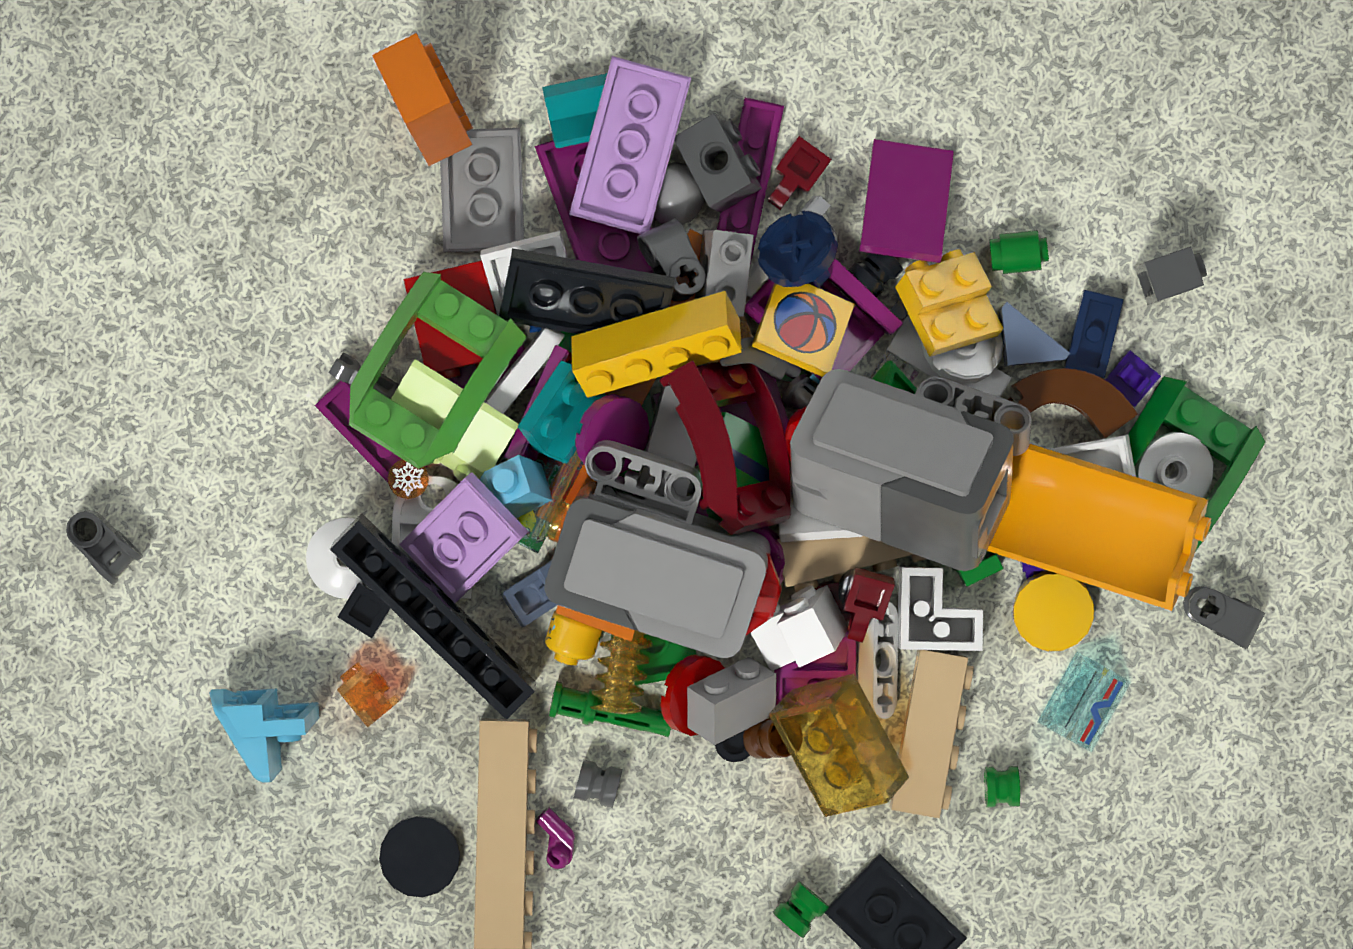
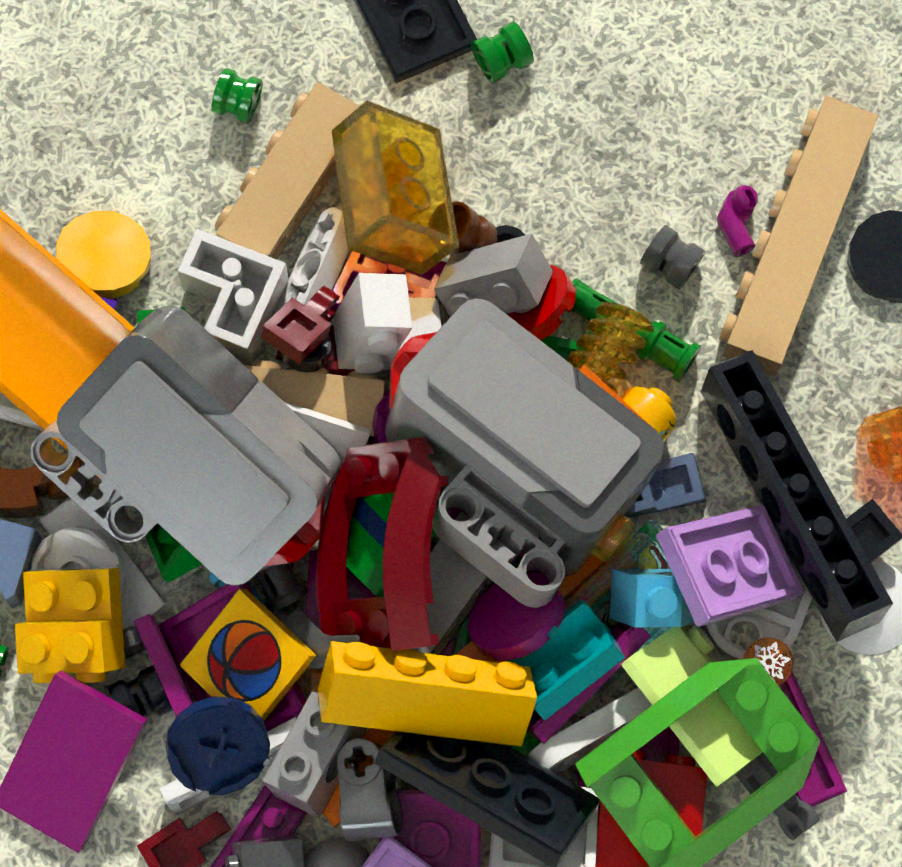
camera: 165 degrees left, 15 degrees down
(1084, 701) = (113, 152): clear light blue panel -> none

